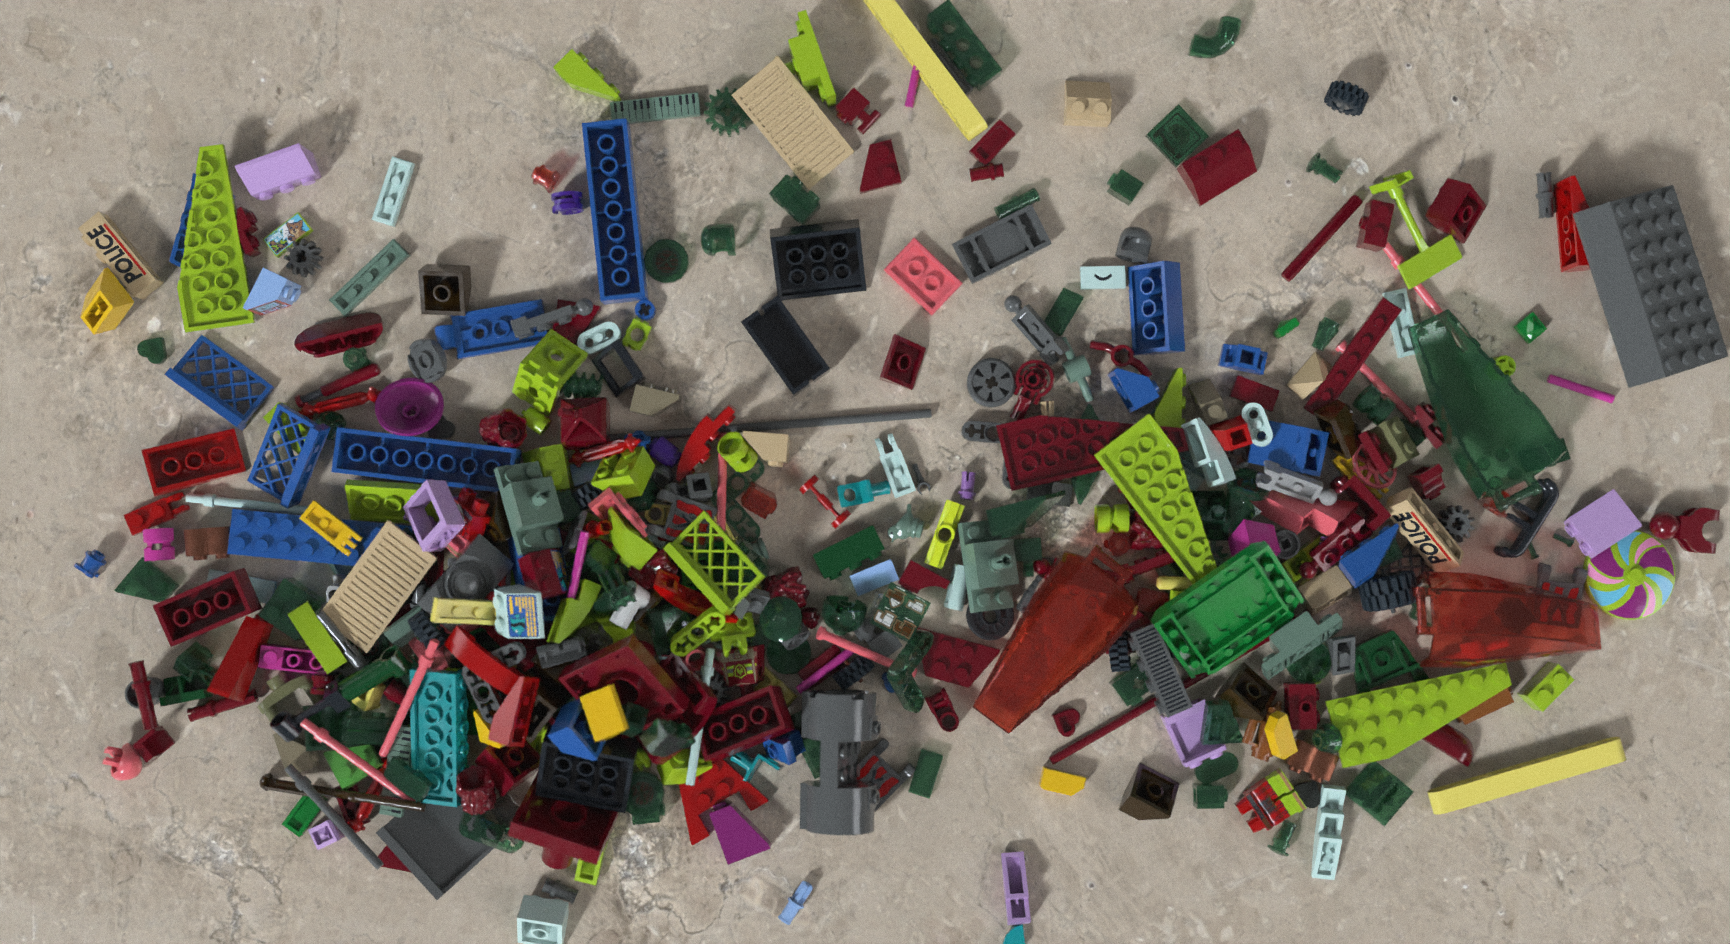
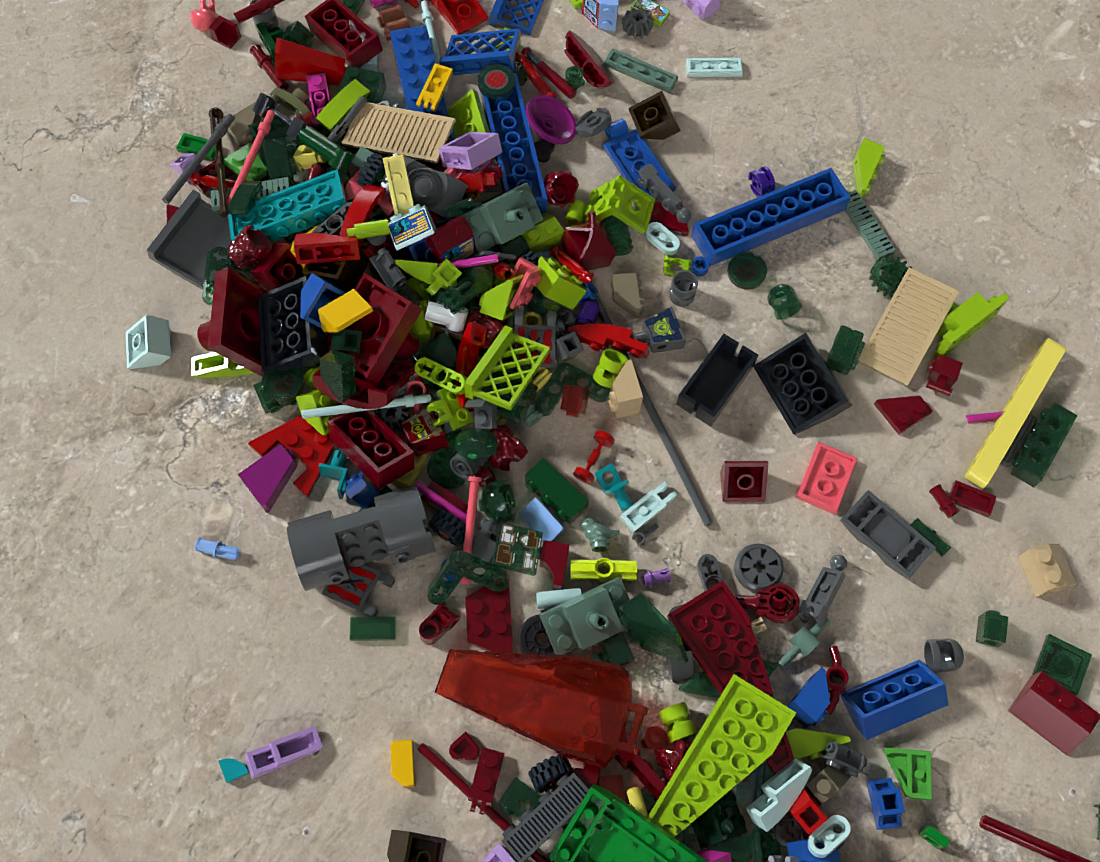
camera: 70 degrees right, 20 degrees down
(343, 454) = (496, 81): none -> tile
(425, 662) = (346, 173): coral bar -> none
(509, 556) = (456, 209): none -> clear green plate
(512, 660) = (369, 229): none -> lime cylinder
(545, 177) = (774, 161): clear red brick -> none
(559, 890) = (179, 348): dark grey pin -> none
(587, 594) = (445, 275): none -> lime plate
(629, 362) = (659, 252): black tile -> none
(669, 339) = (683, 288): none -> dark grey wheel
(710, 382) = (662, 332): none -> torso
(721, 491) = (566, 369): coral bar -> none
(1063, 311) = (852, 612): clear green slope -> none
(1101, 711) = (485, 779): none -> dark red hinge
(1102, 277) = (899, 638): light aqua tile -> none
(1193, 386) = (837, 758): none -> dark grey hinge
(1224, 321) = (912, 771): none -> bright green wing
(1254, 392) = (858, 838): dark red tile -> none

